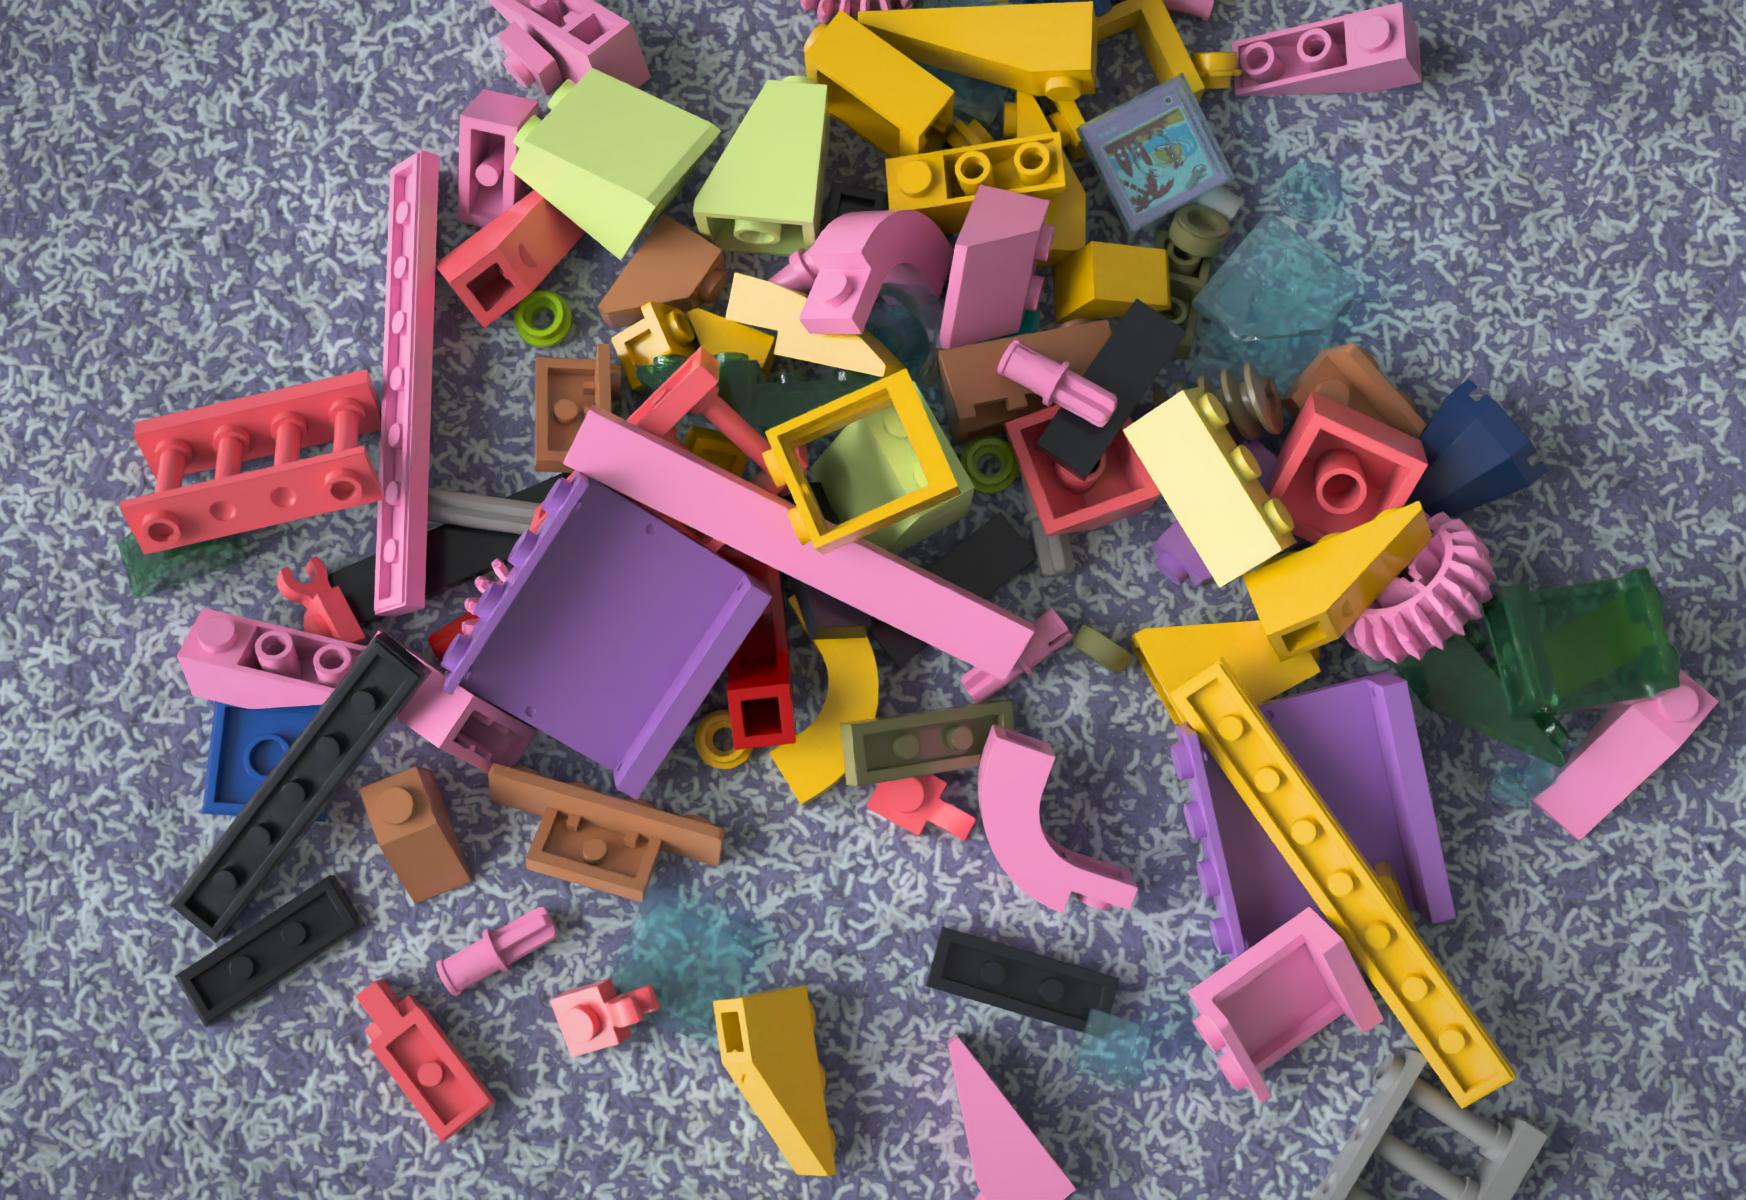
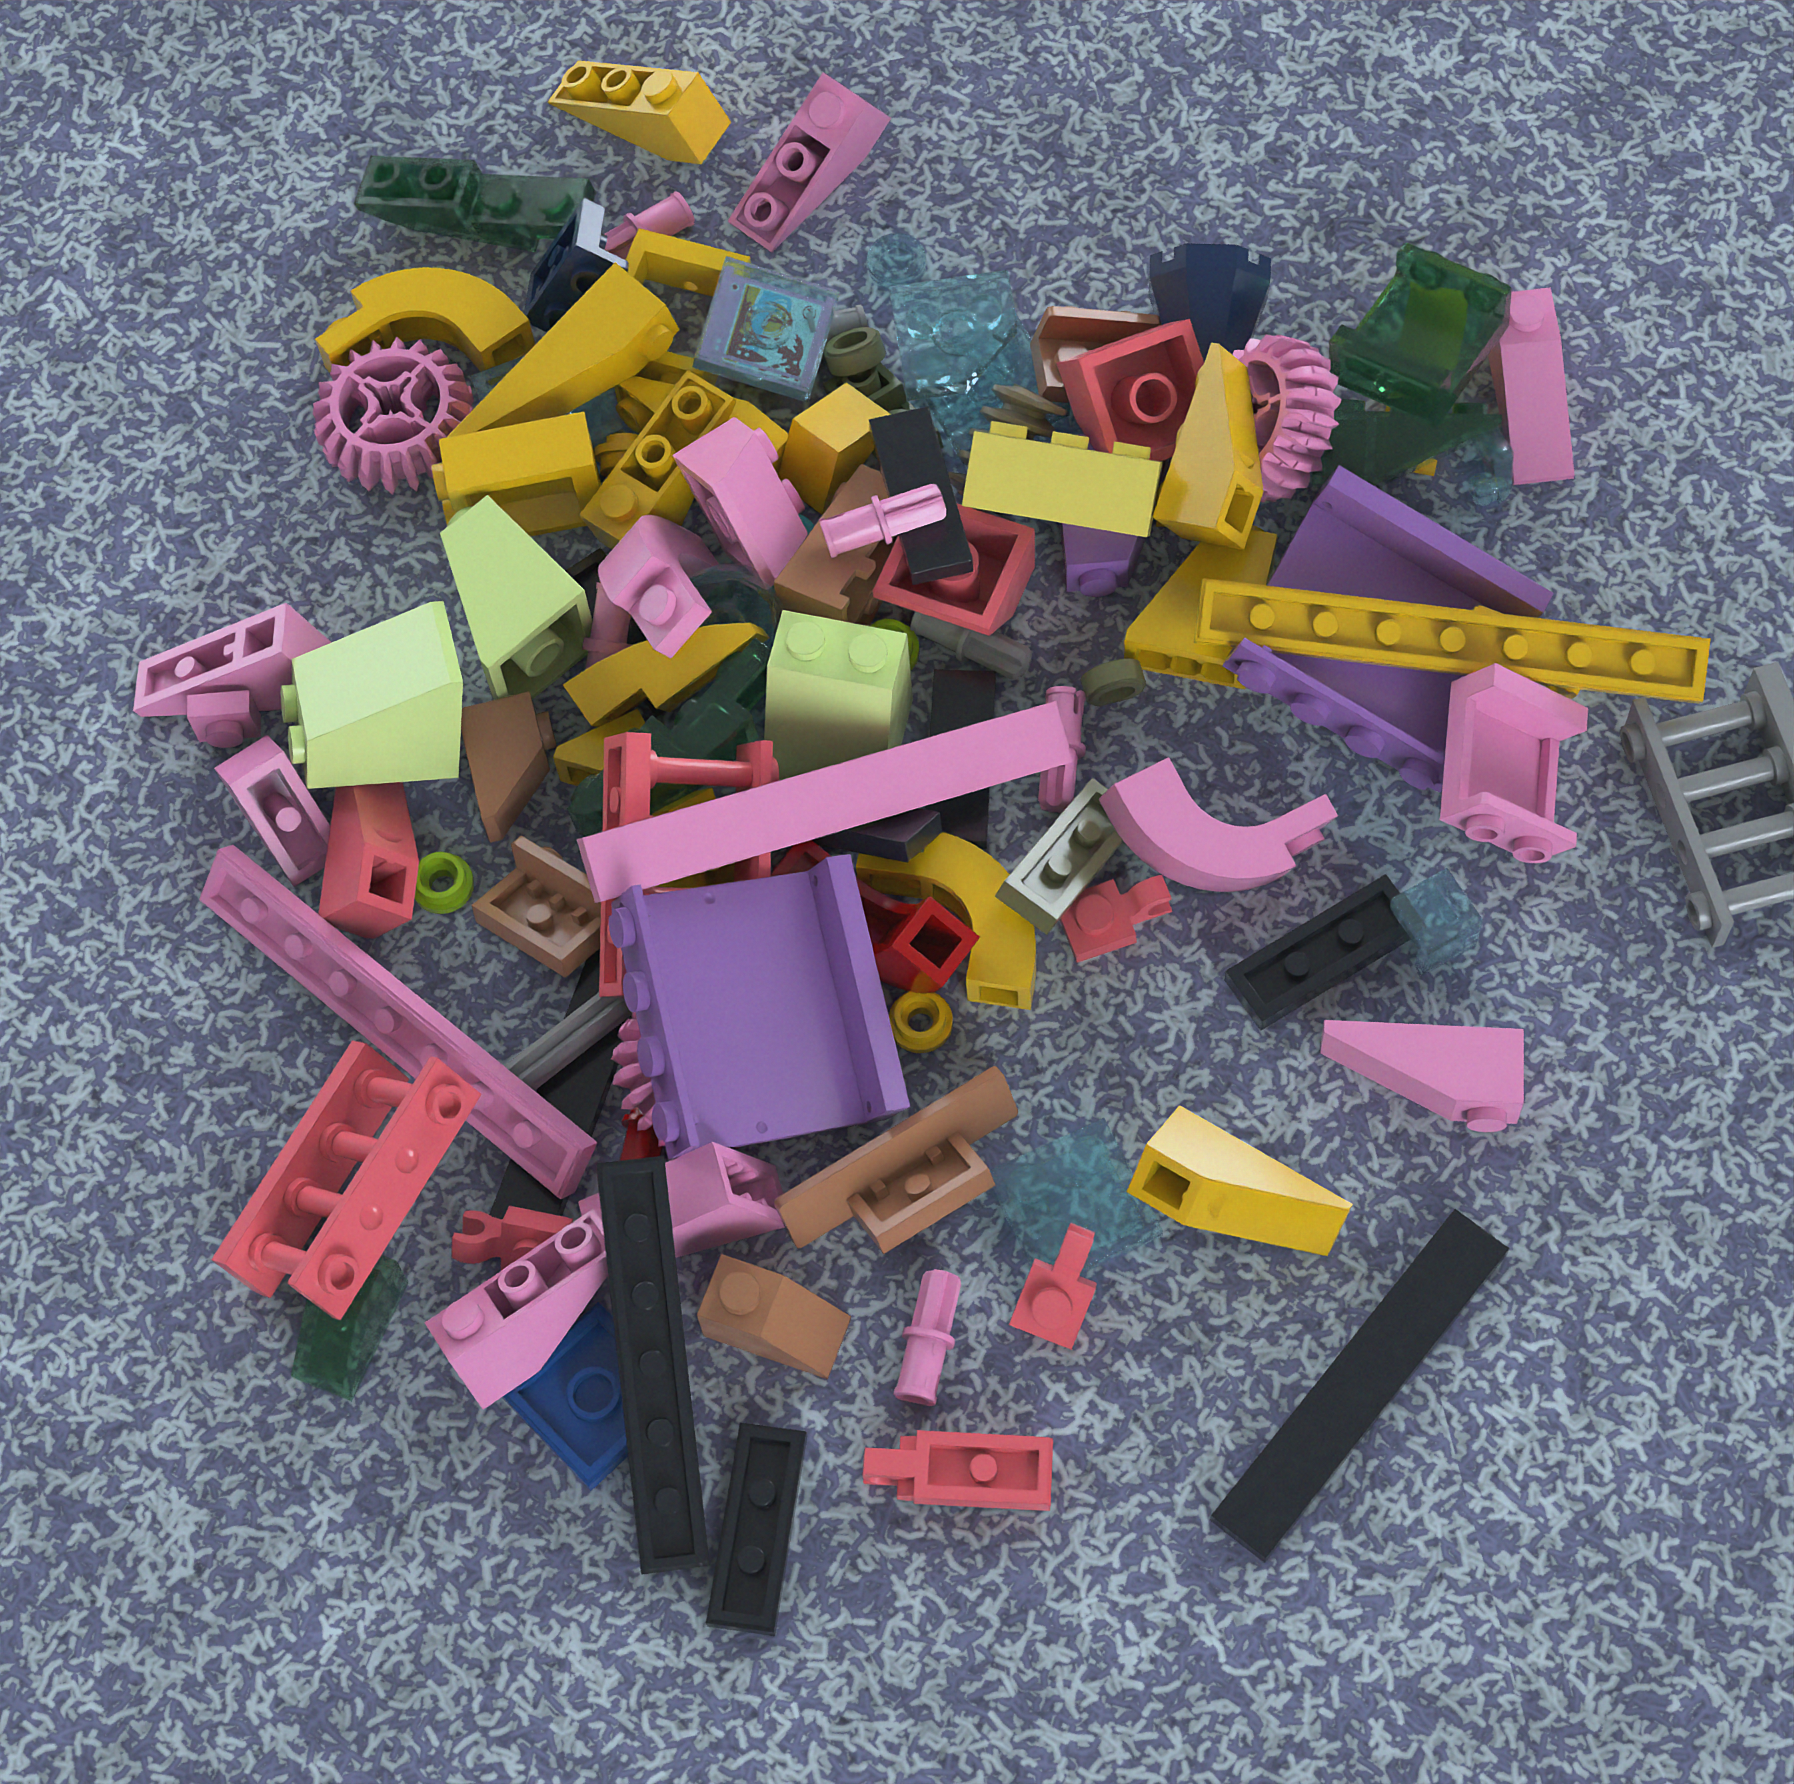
camera: 45 degrees left, 15 degrees down
(660, 333) = (544, 807): yellow bracket -> none
(786, 468) = (827, 622): yellow window -> none
(1216, 68) = (741, 239): yellow plate -> none

